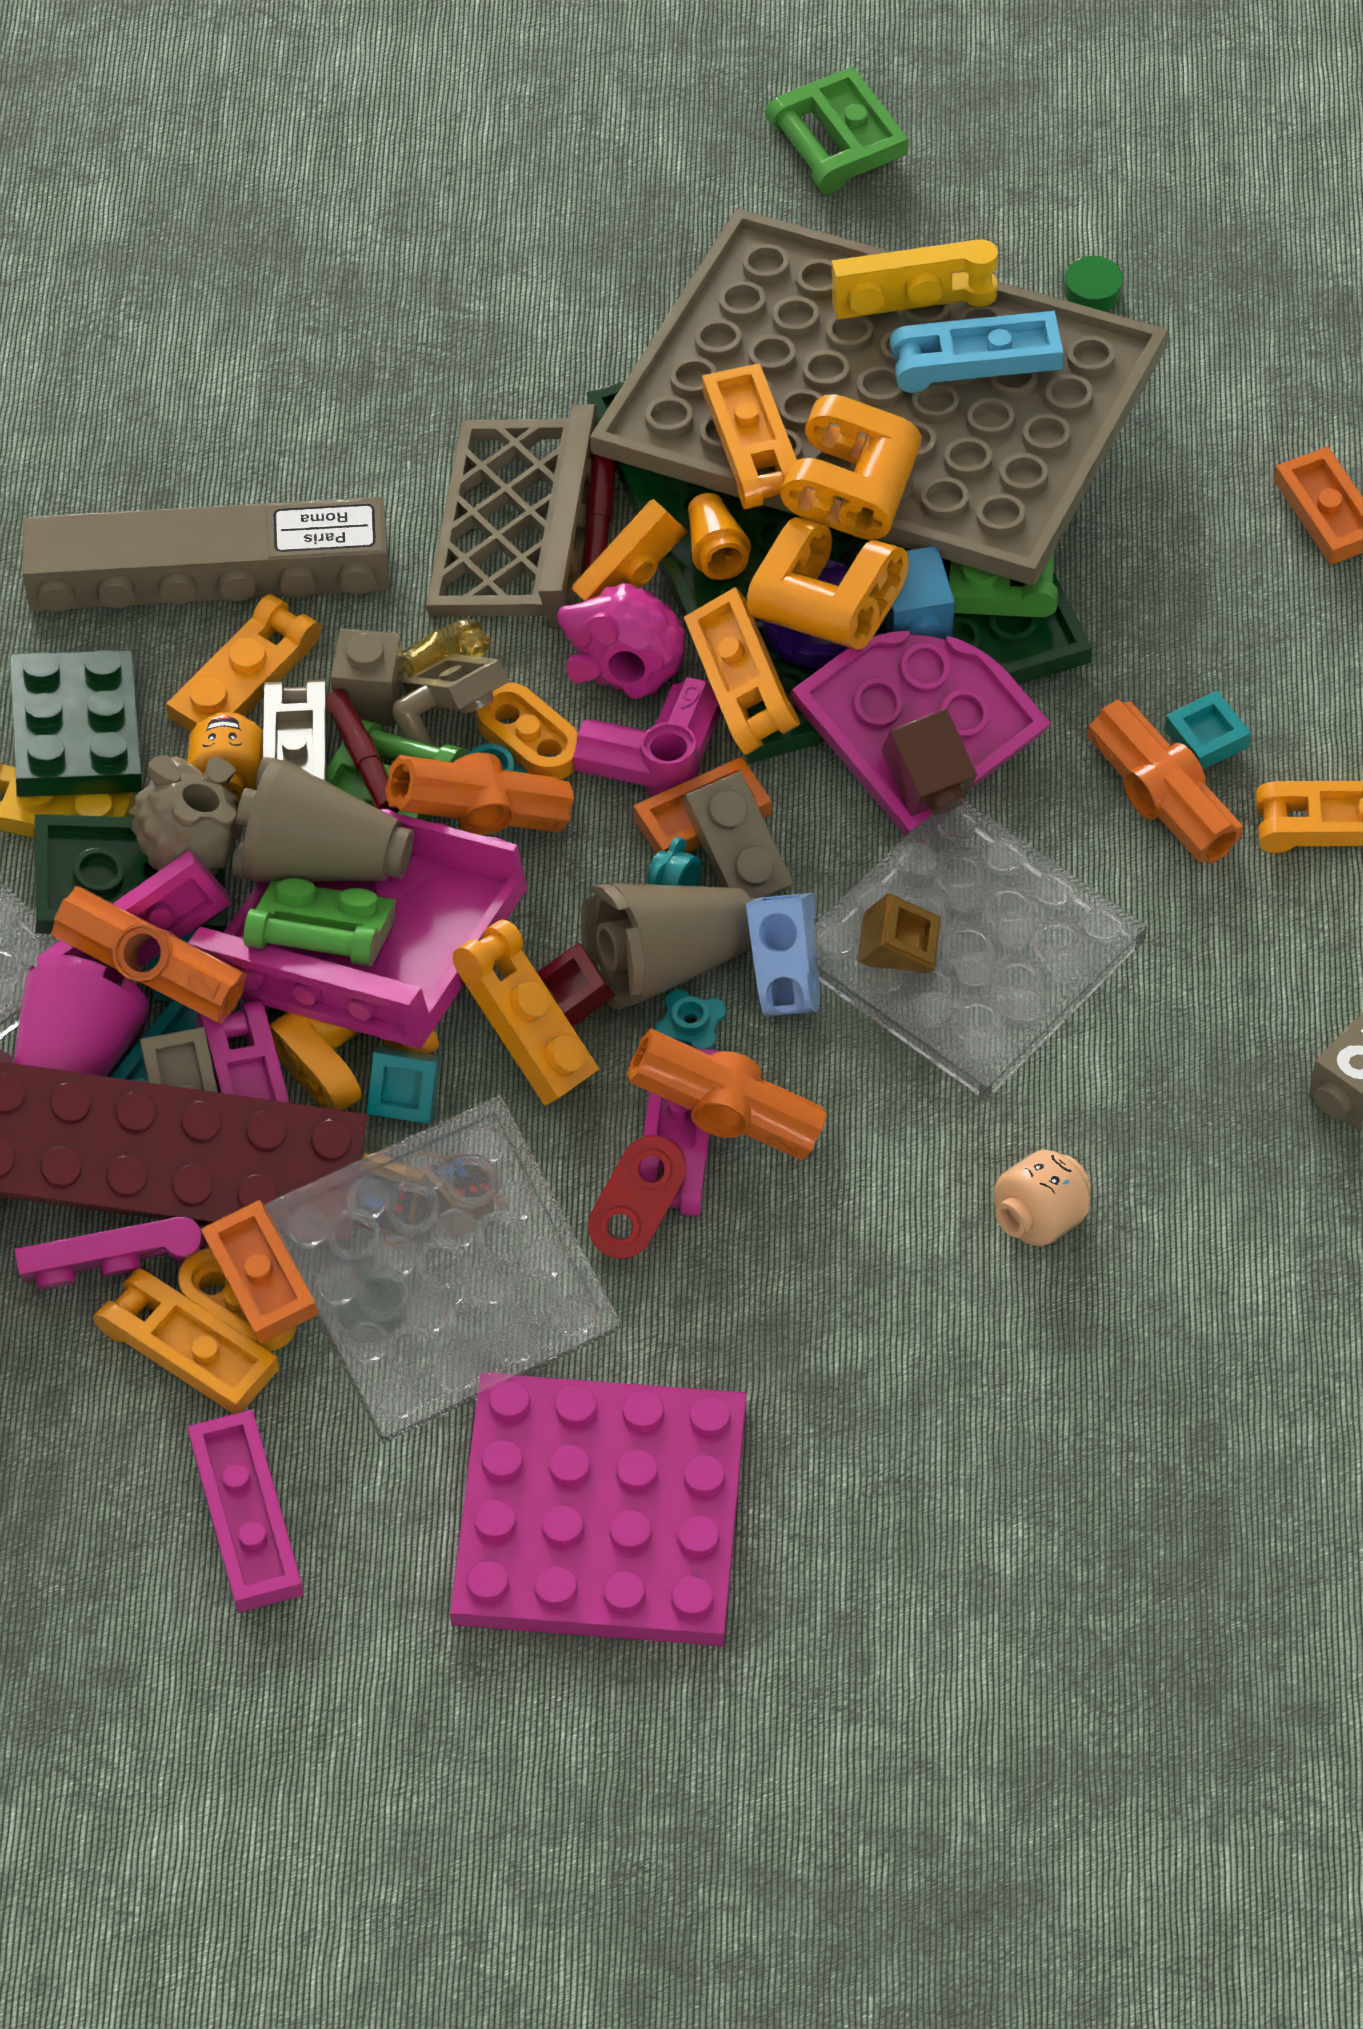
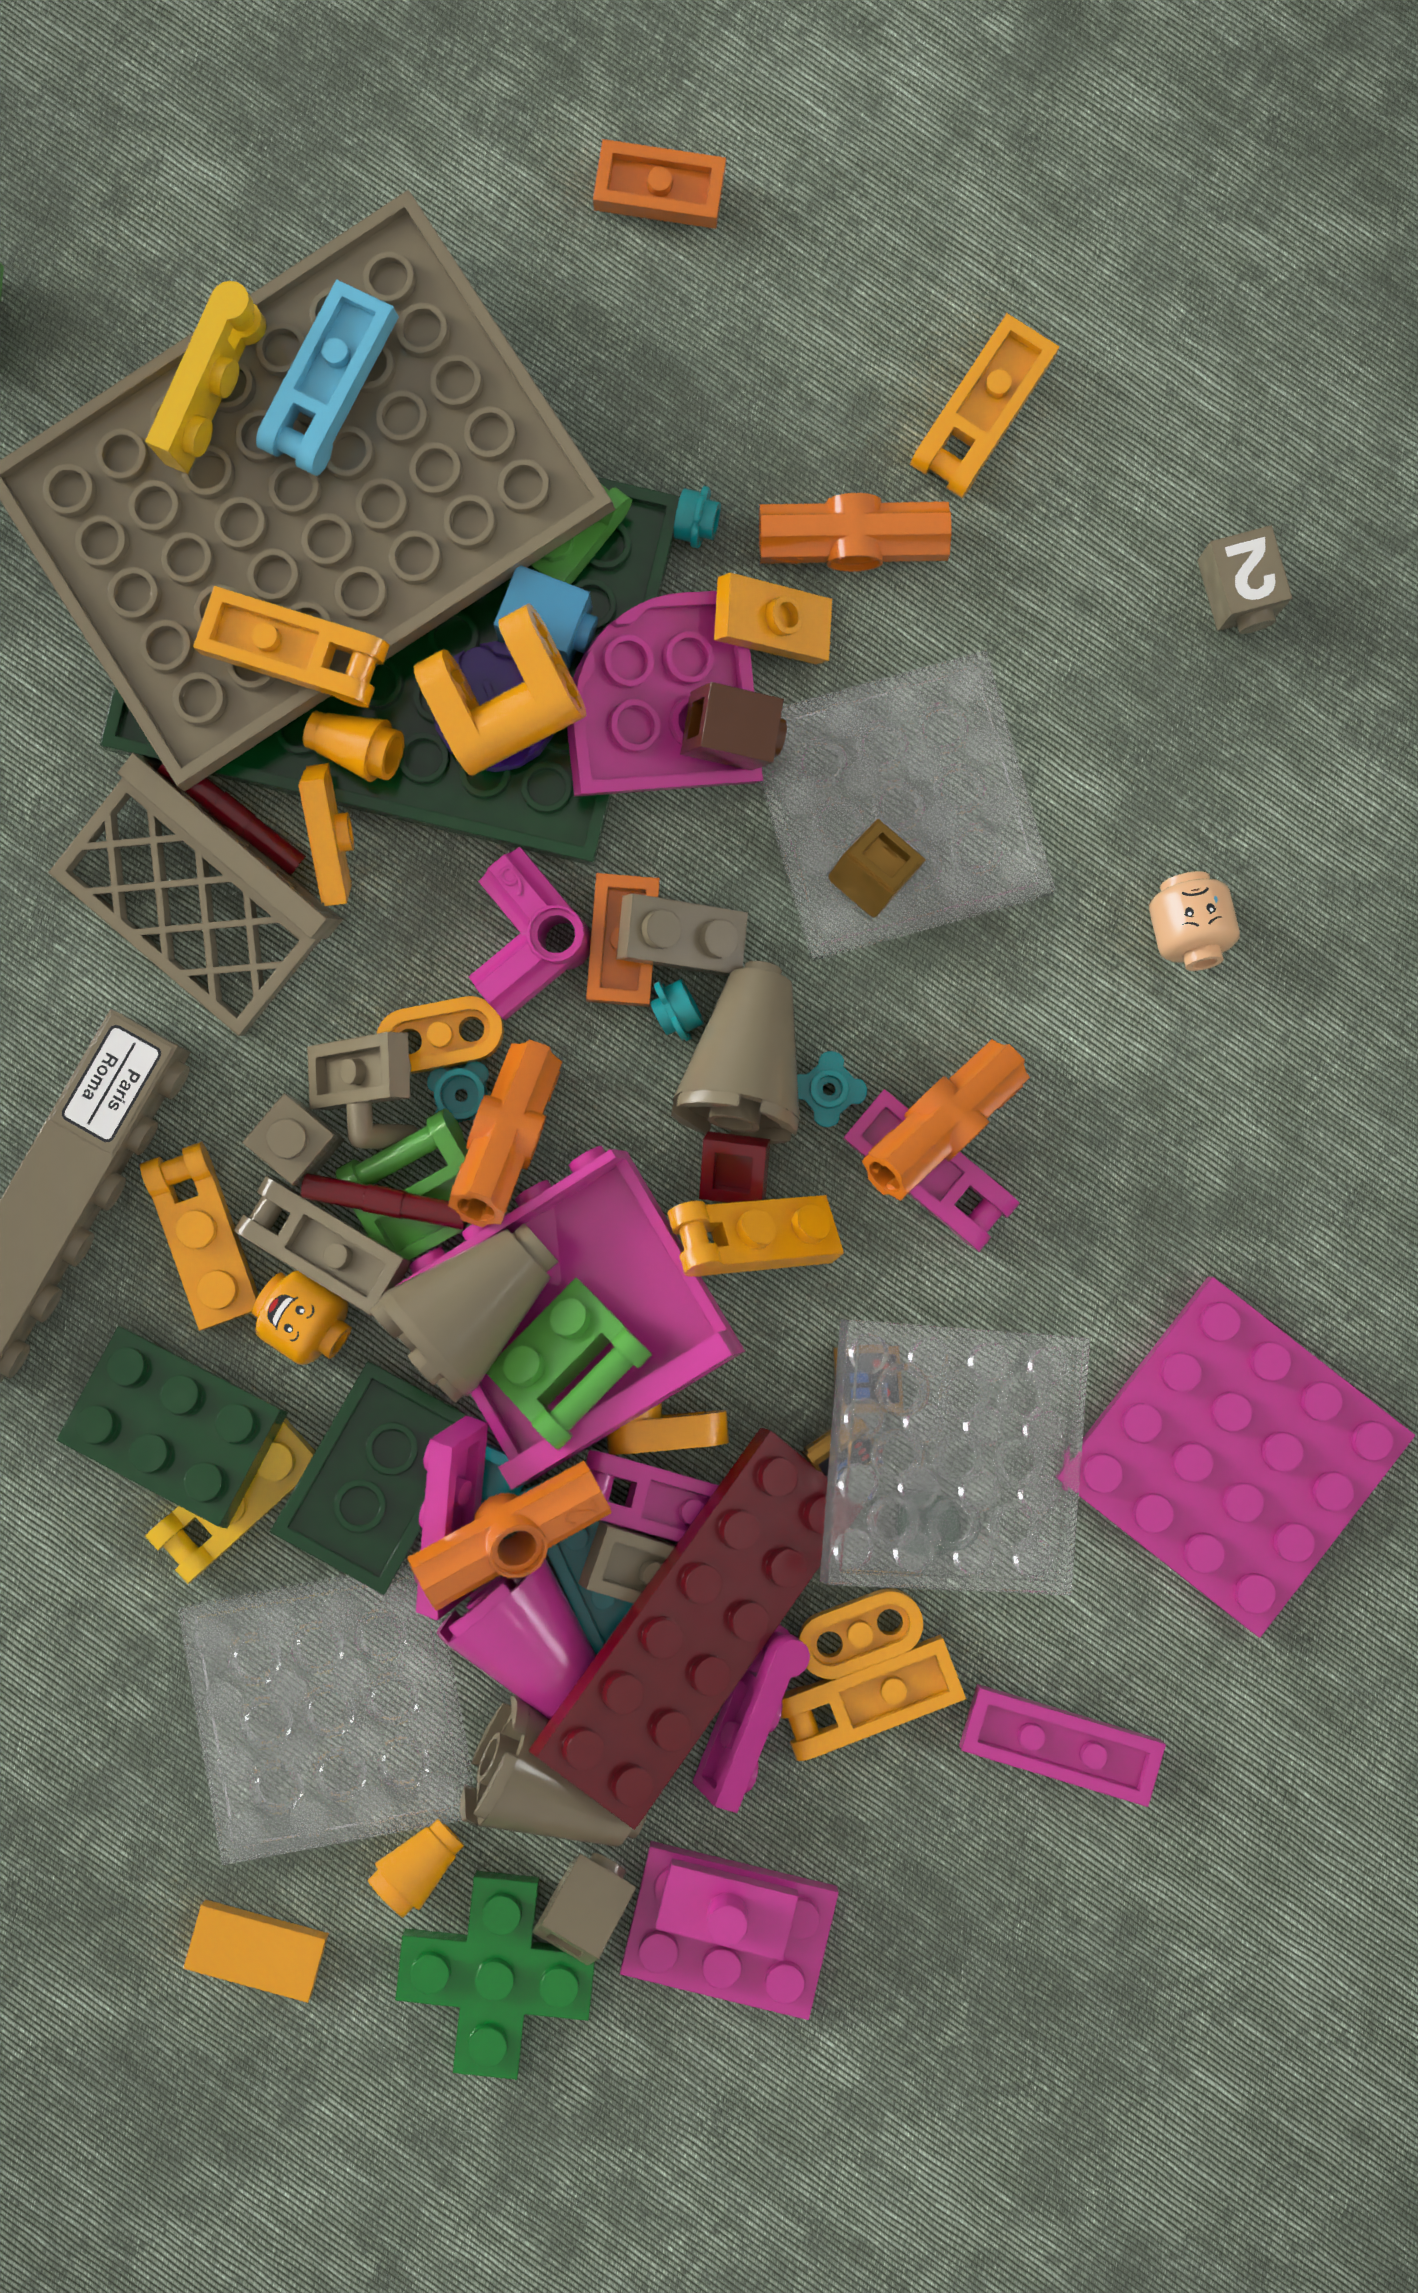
camera: 60 degrees left, 30 degrees up
(186, 813) = (375, 1409): dark tan animal -> none
(259, 1272) = (869, 1617): orange plate -> none
(403, 1085) = (745, 1376): teal plate -> none
(459, 637) = (292, 1048): clear yellow arm -> none
(623, 640) = (409, 894): dark pink animal -> none
(637, 1197) = (988, 1263): red plate -> none
(740, 670) = (520, 820): light orange plate -> none
(785, 953) = (826, 971): light blue leg -> none
(880, 473) = (401, 543): light orange connector -> none
(1044, 758) = (773, 618): none -> light orange plate
(1085, 669) = (696, 516): none -> teal plate
(1093, 282) = (270, 209): green tile -> none
(1208, 729) = (825, 459): teal plate -> none

